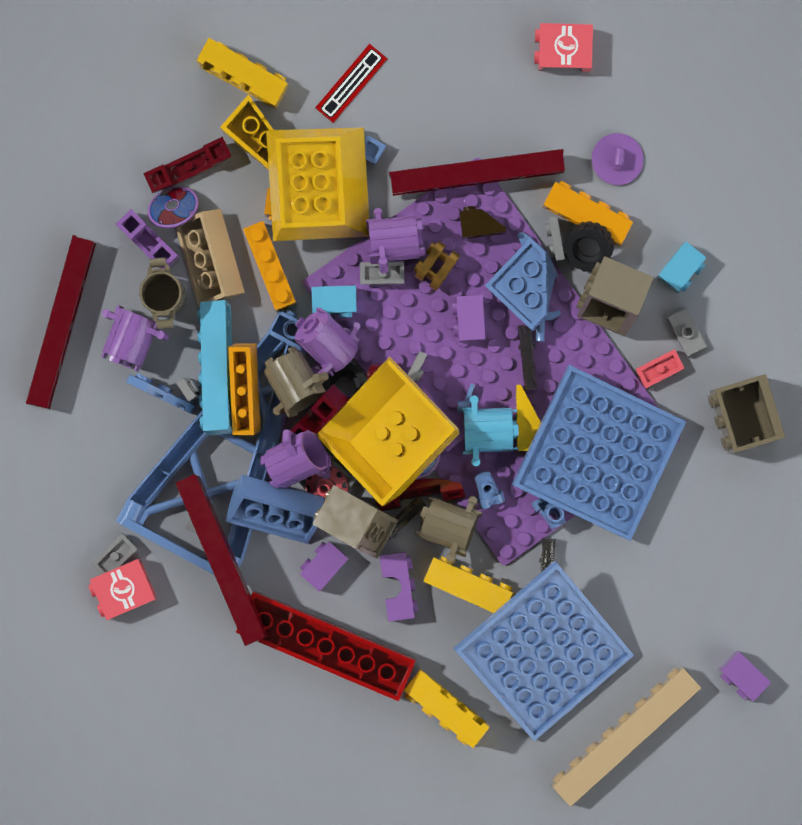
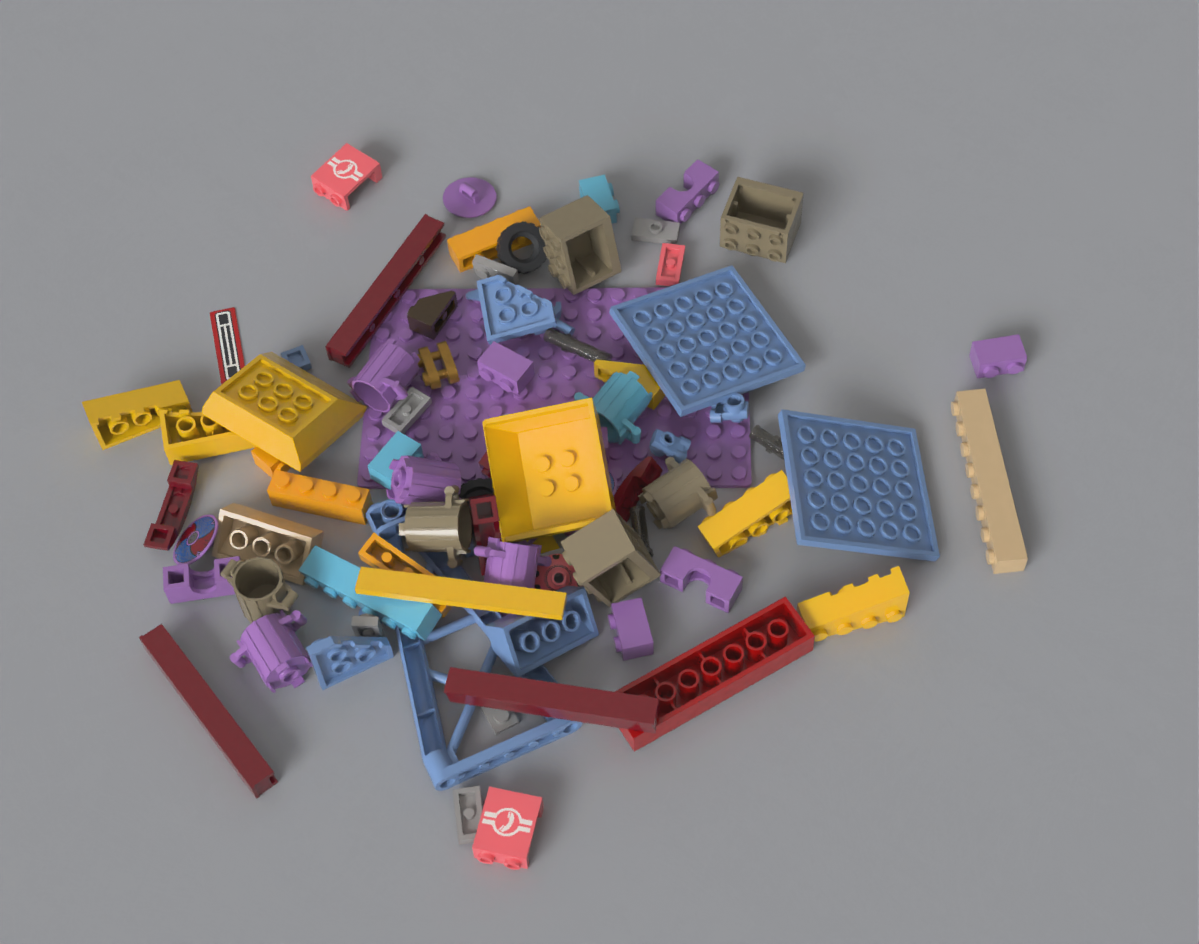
camera: 55 degrees left, 30 degrees down
(248, 443) = (461, 593): none -> yellow tile
(758, 336) = (700, 183): none -> medium lavender arch

